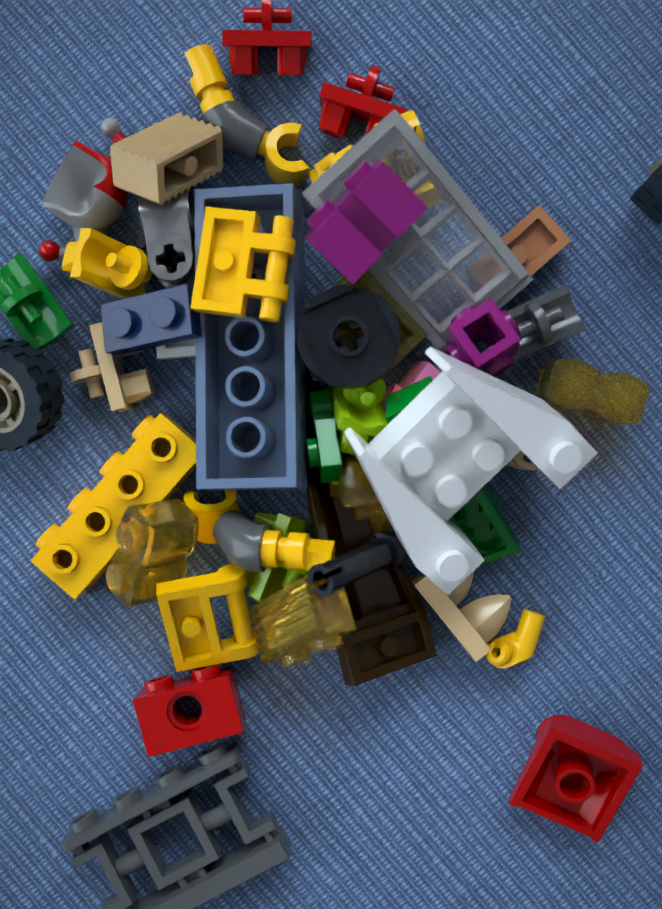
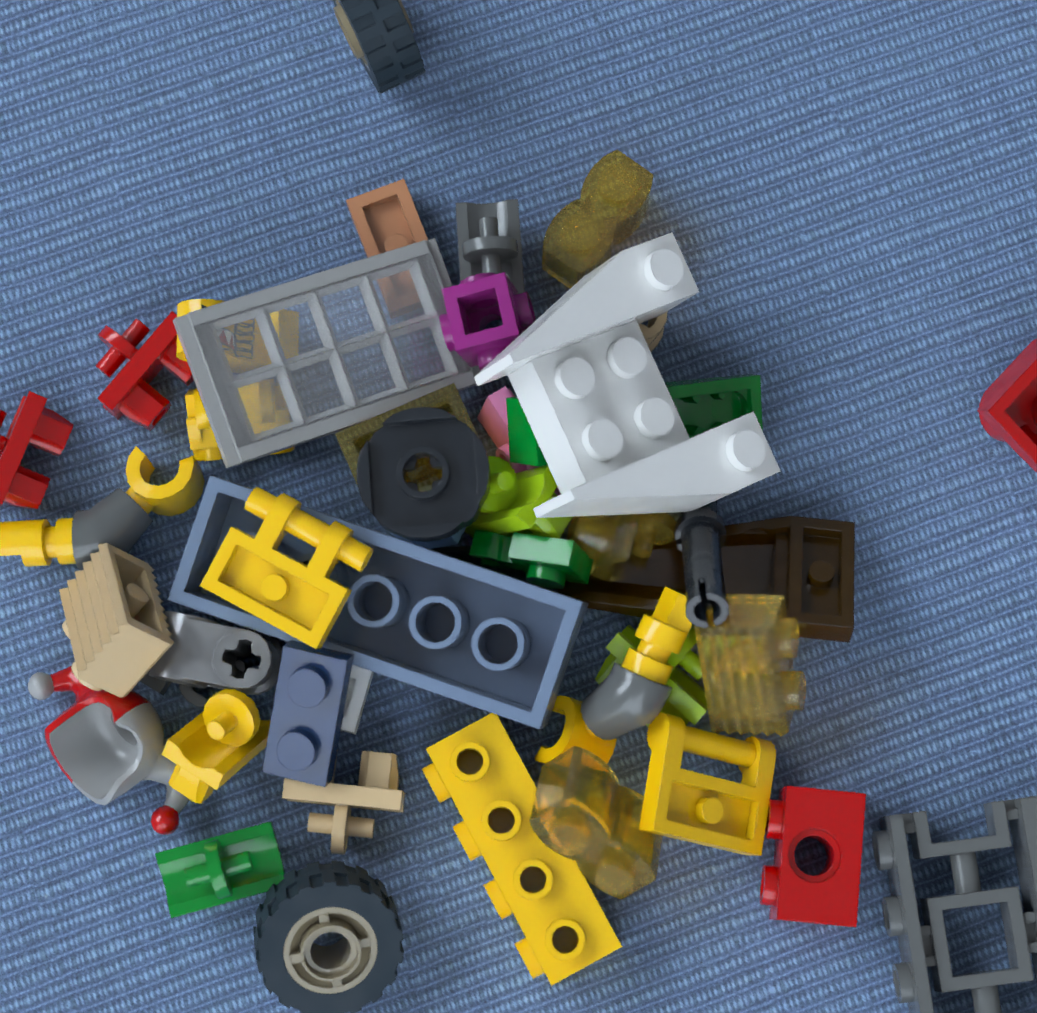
camera: 65 degrees left, 10 degrees down
(363, 219) = (291, 401): magenta brick -> none
(472, 624) = (830, 467): tan tile -> none
(517, 645) = (876, 418): yellow arm -> none

